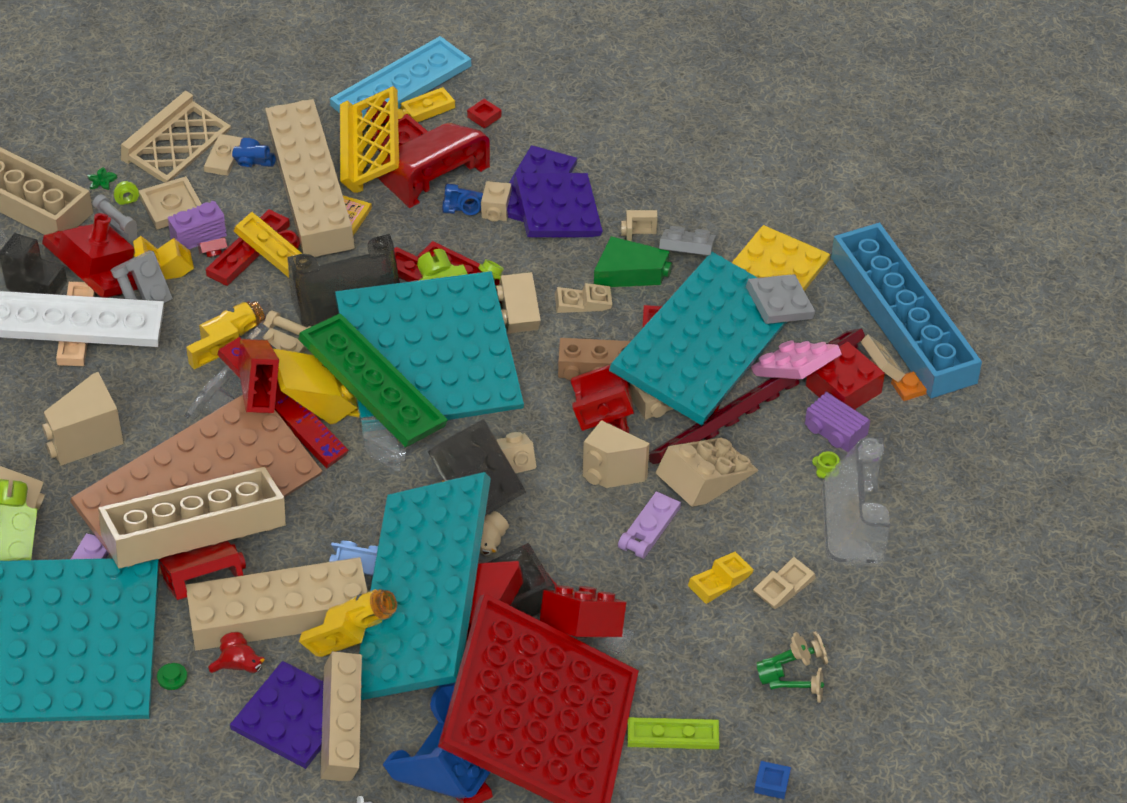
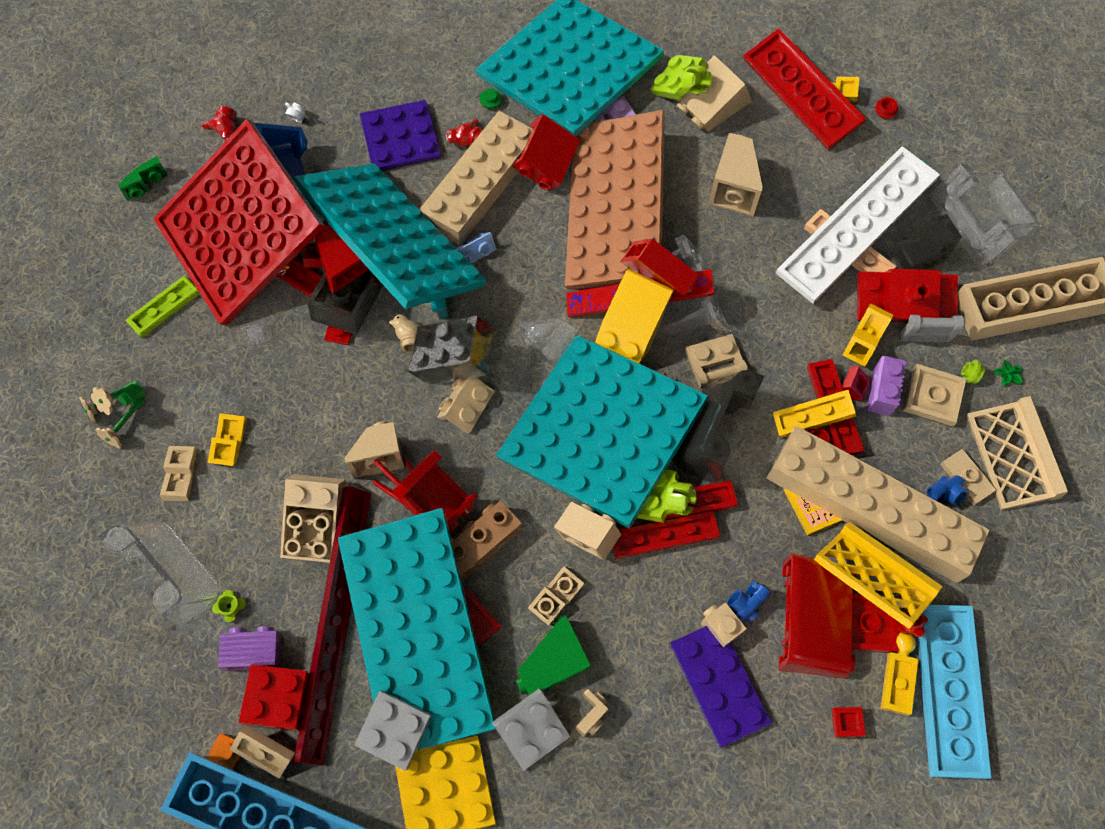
camera: 135 degrees right, 20 degrees up
(147, 278) = (851, 305): light grey plate -> none
(191, 517) = (577, 157): tan brick -> none
(223, 329) = (756, 324): yellow plate -> none
(341, 716) = (359, 137): tan brick -> none
(347, 622) = (412, 184): yellow plate -> none
(373, 380) = (596, 349): green plate -> none
(489, 265) = (641, 543): lime plate -> none
(557, 205) = (672, 667): dark purple plate -> none
(583, 612) = (275, 308): red brick -> none
(649, 524) = (313, 439): lavender plate -> none
(772, 780) = (70, 324): blue plate -> none
(795, 360) = (321, 670): bright pink plate -> none

